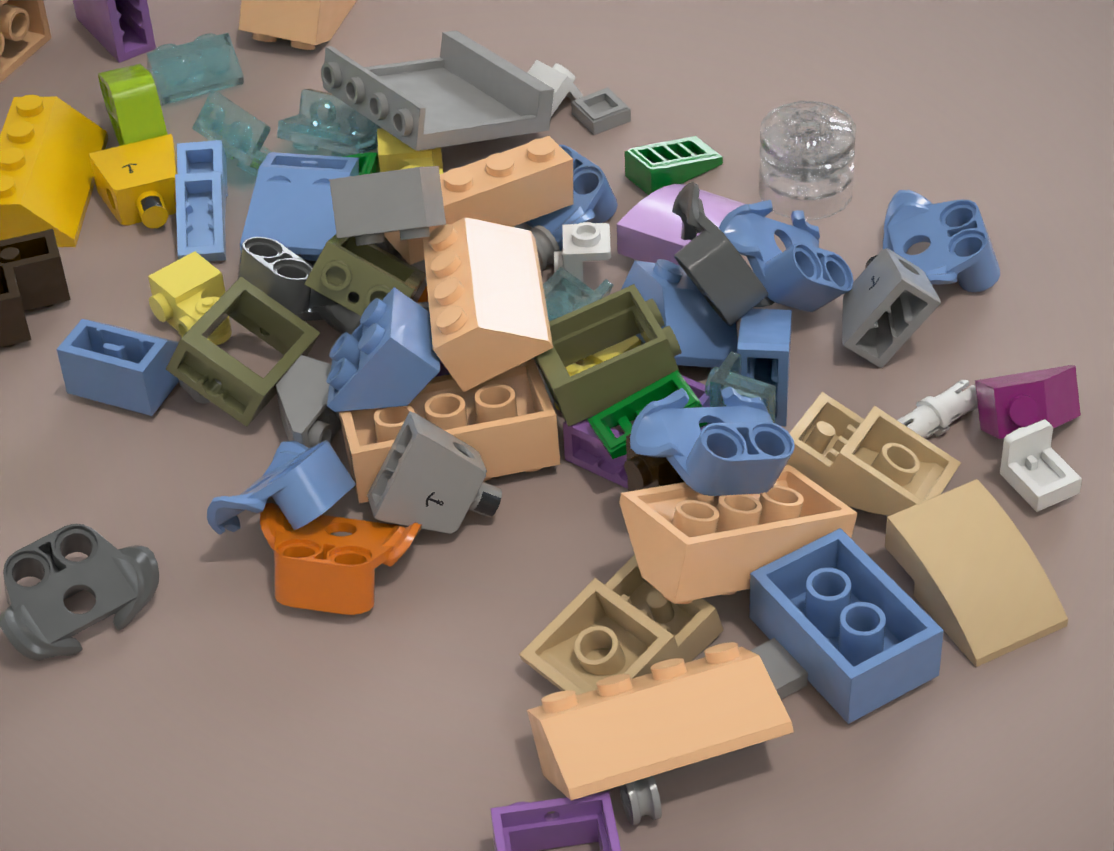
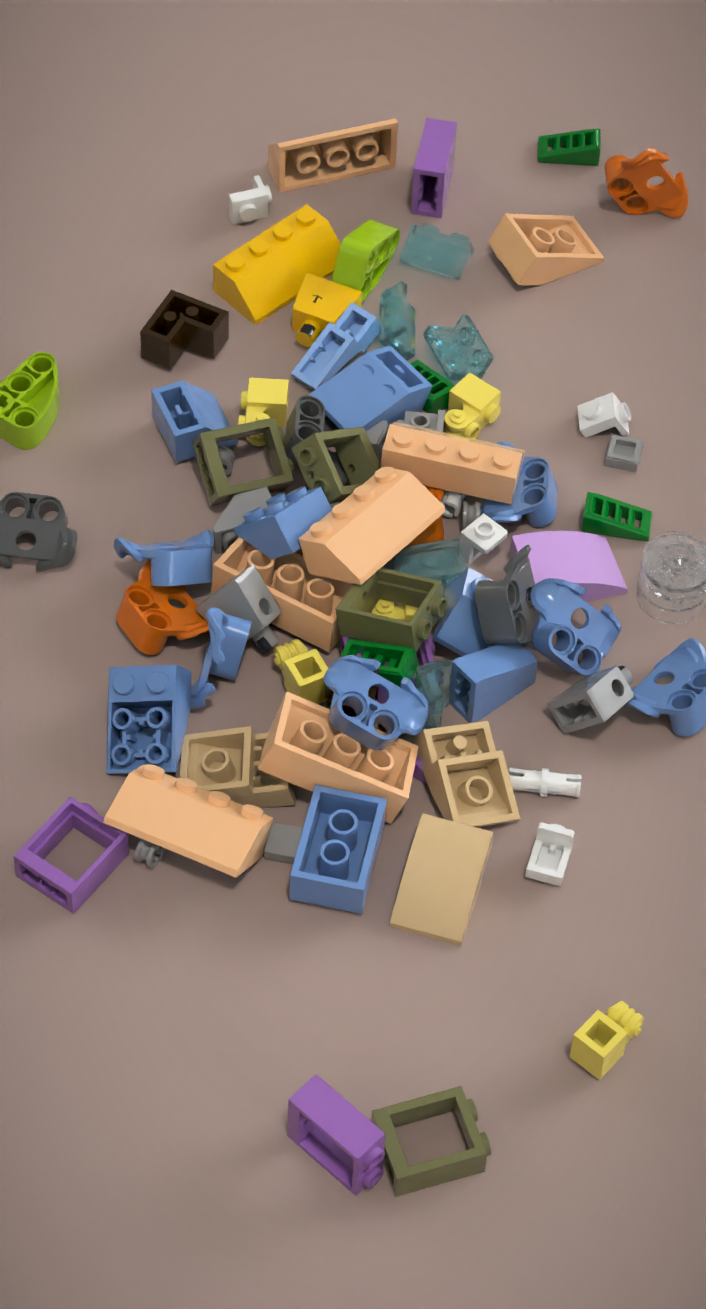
camera: 40 degrees right, 10 degrees up
(388, 202) = (368, 434): light grey brick -> none
(444, 99) = (525, 377): light grey panel -> none
(462, 665) = (147, 716): none -> medium blue slope
(464, 545) = (222, 654): none -> medium blue piece
(578, 501) = (302, 670): none -> light yellow brick
(1026, 399) = (595, 816): magenta slope -> none

